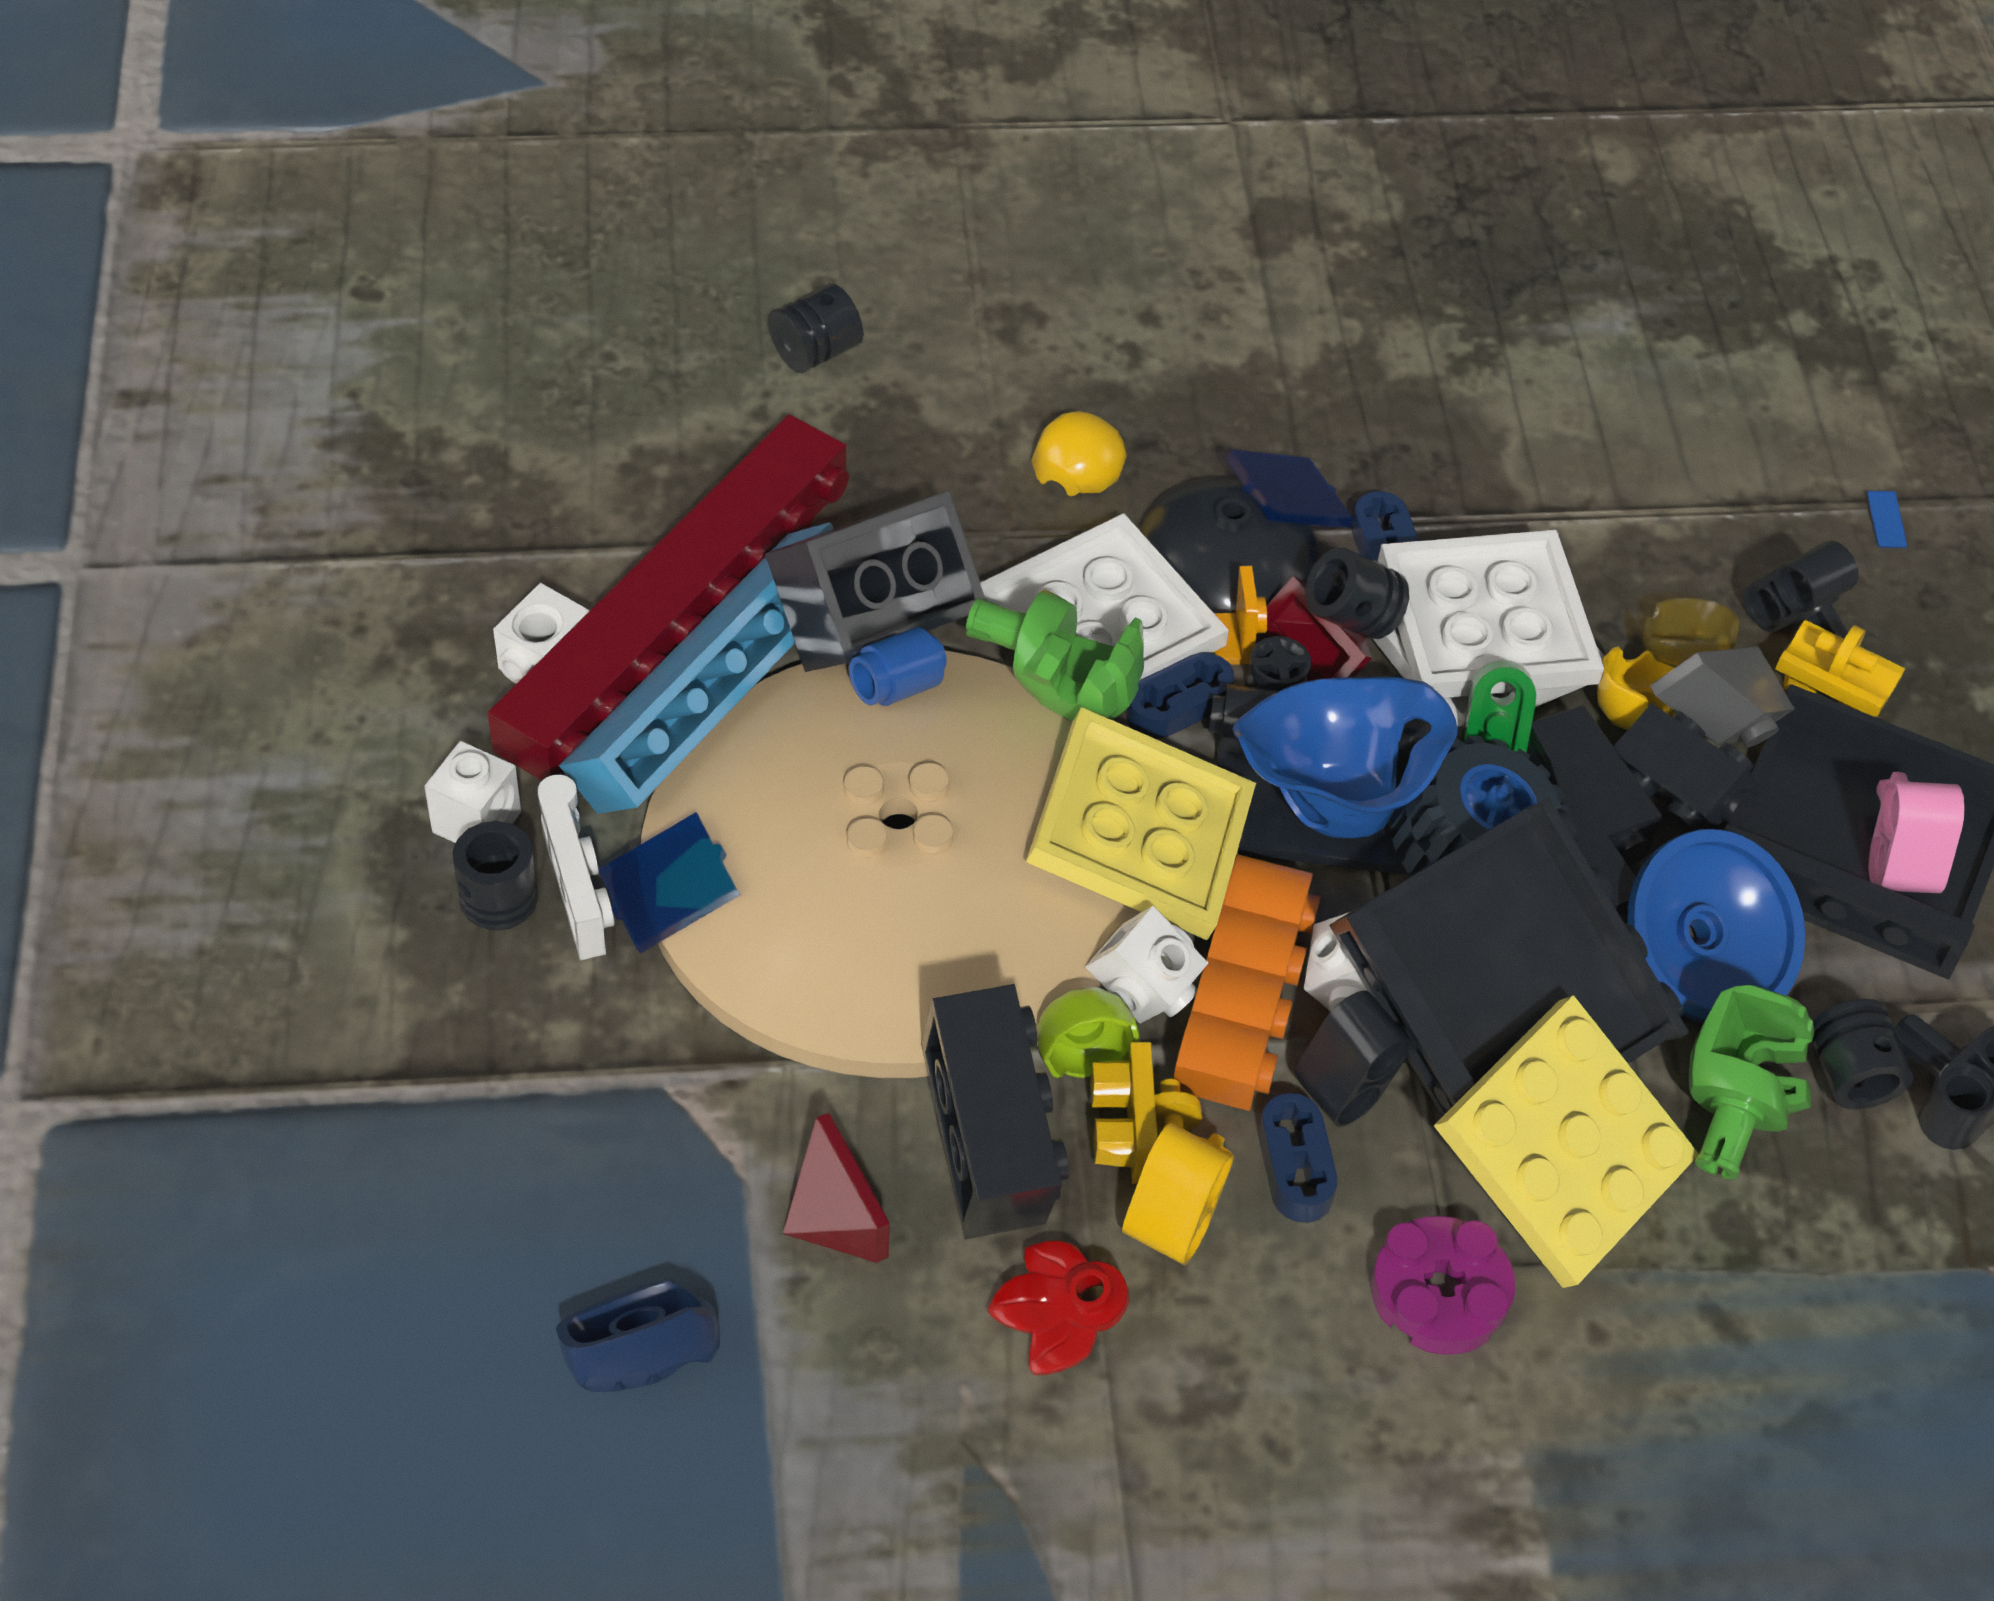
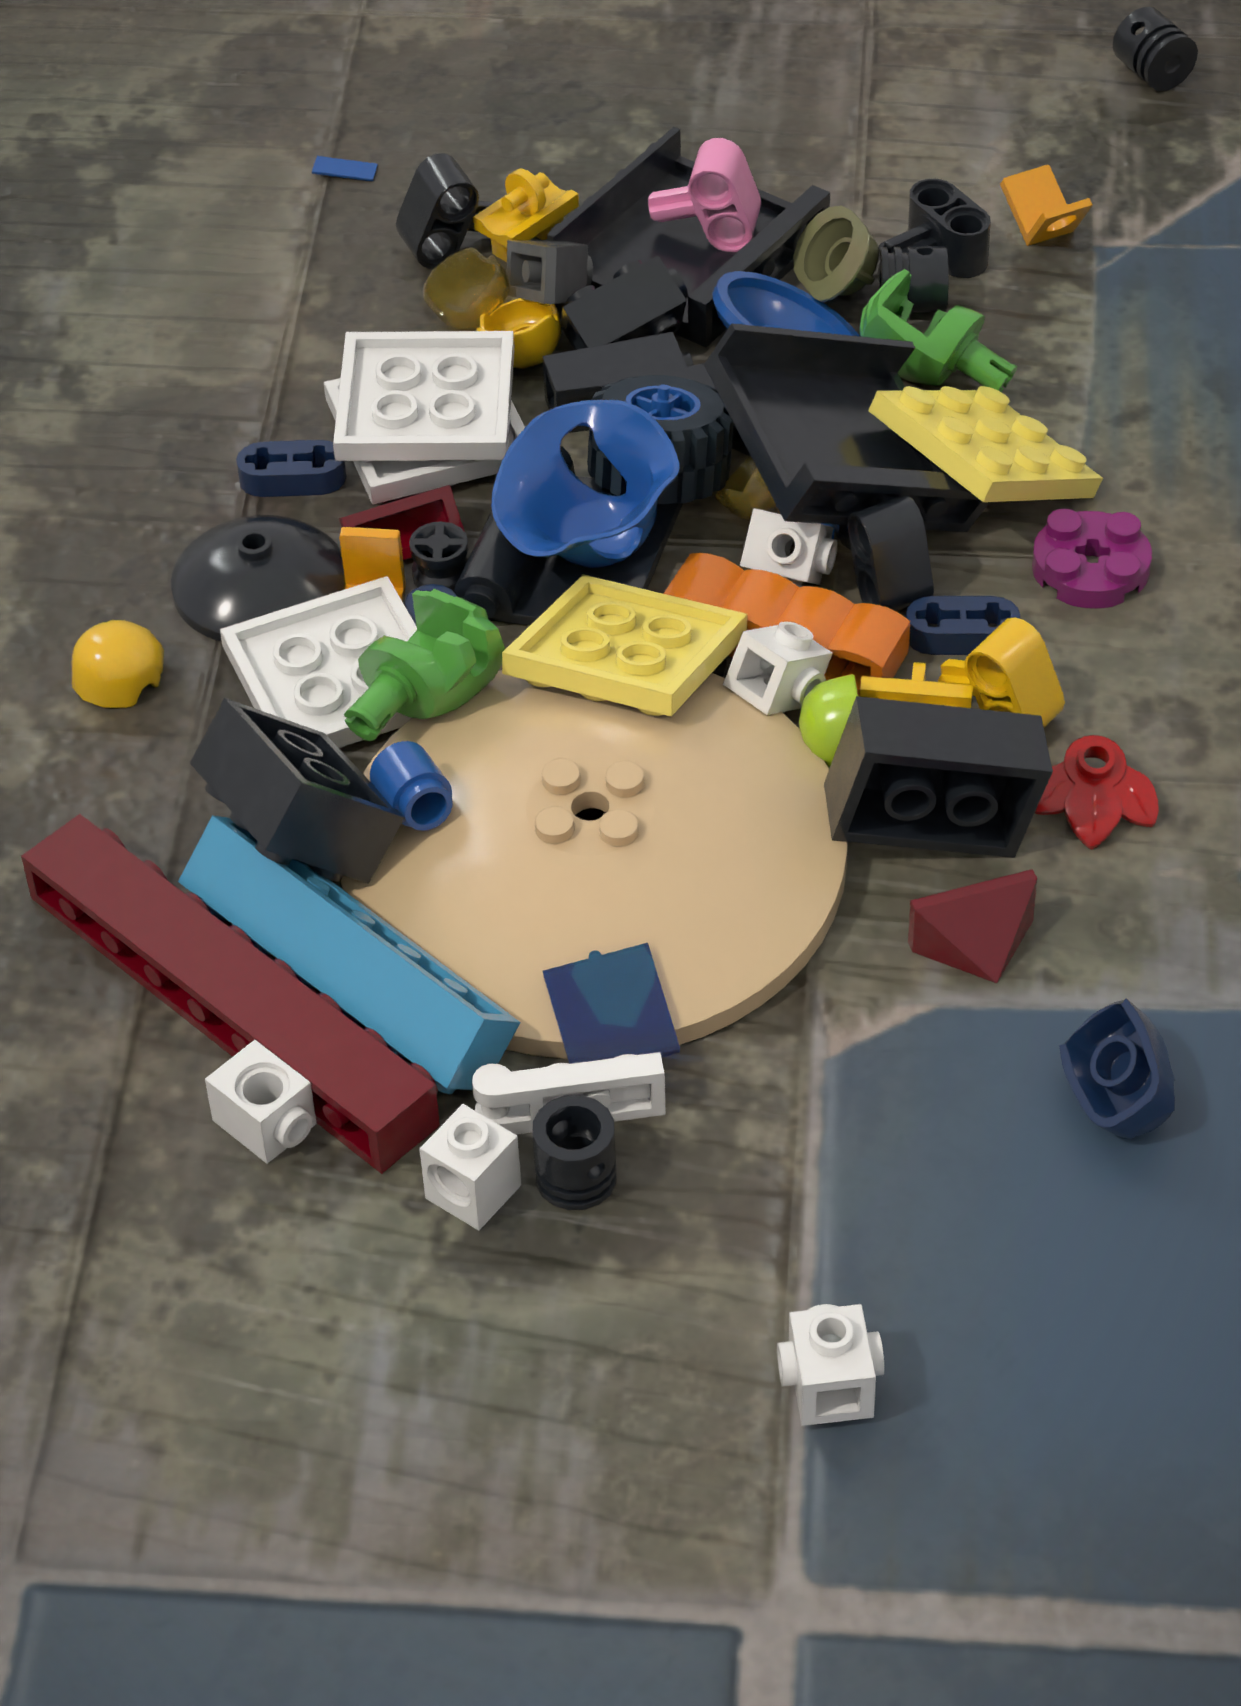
camera: 75 degrees left, 5 degrees down
(251, 1101) = (831, 1363): none -> white brick
(1289, 489) = (217, 515): clear blue piece -> none
(1361, 598) = (393, 464): black piece -> none
(1501, 718) = (536, 389): green plate -> none
(1868, 968) = (835, 254): none -> olive piece

